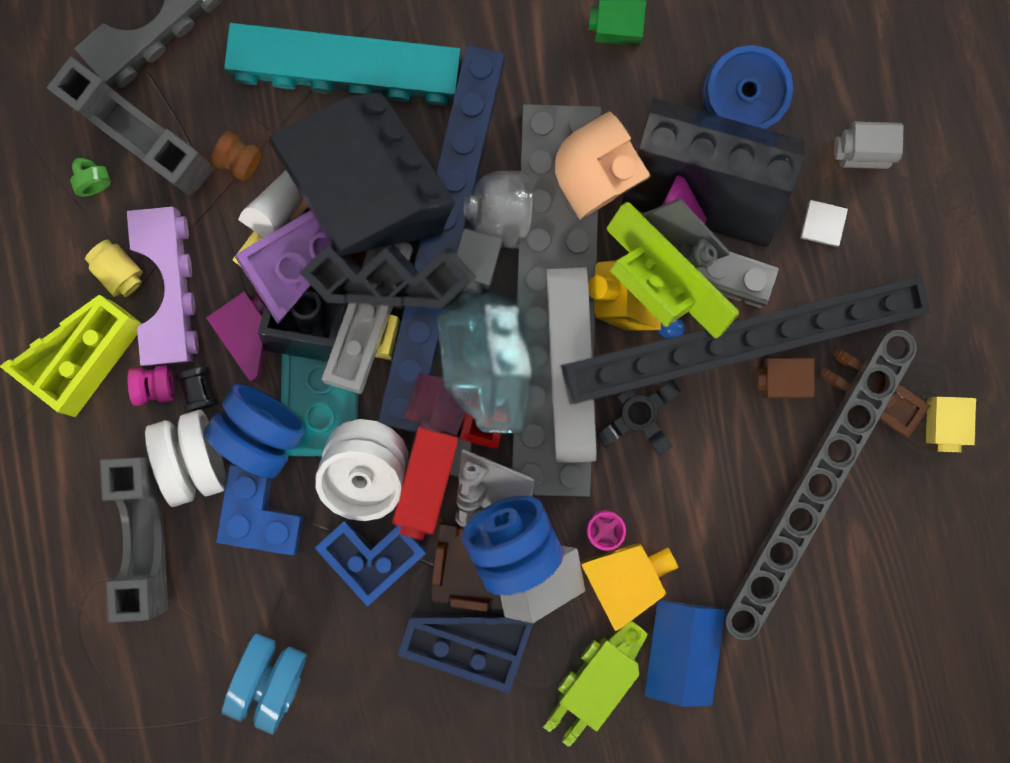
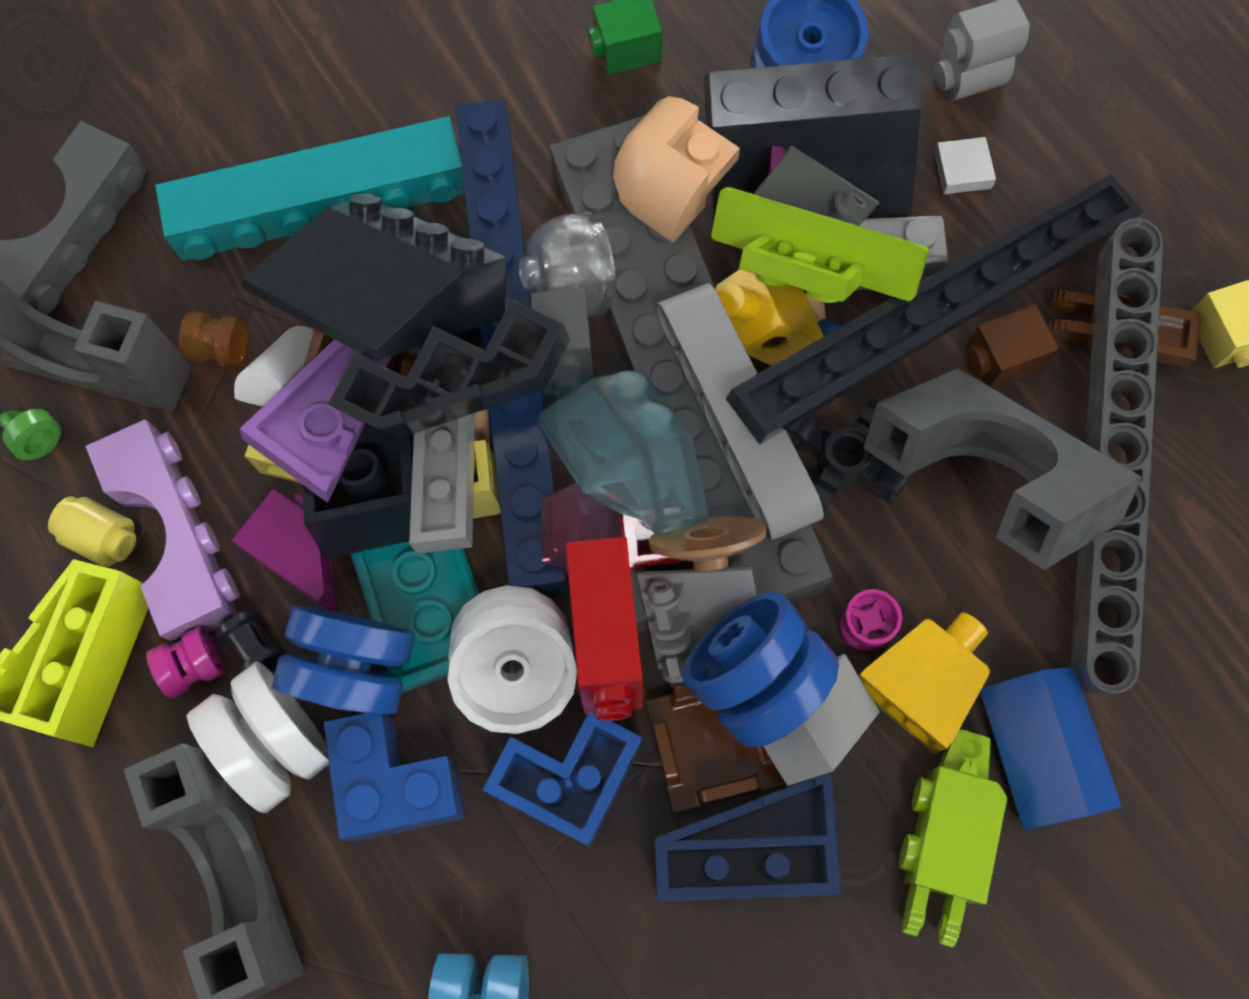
camera: 20 degrees left, 15 degrees down
(515, 451) = (709, 542): none -> medium nougat dish
(729, 420) = (1071, 486): none -> dark grey arch

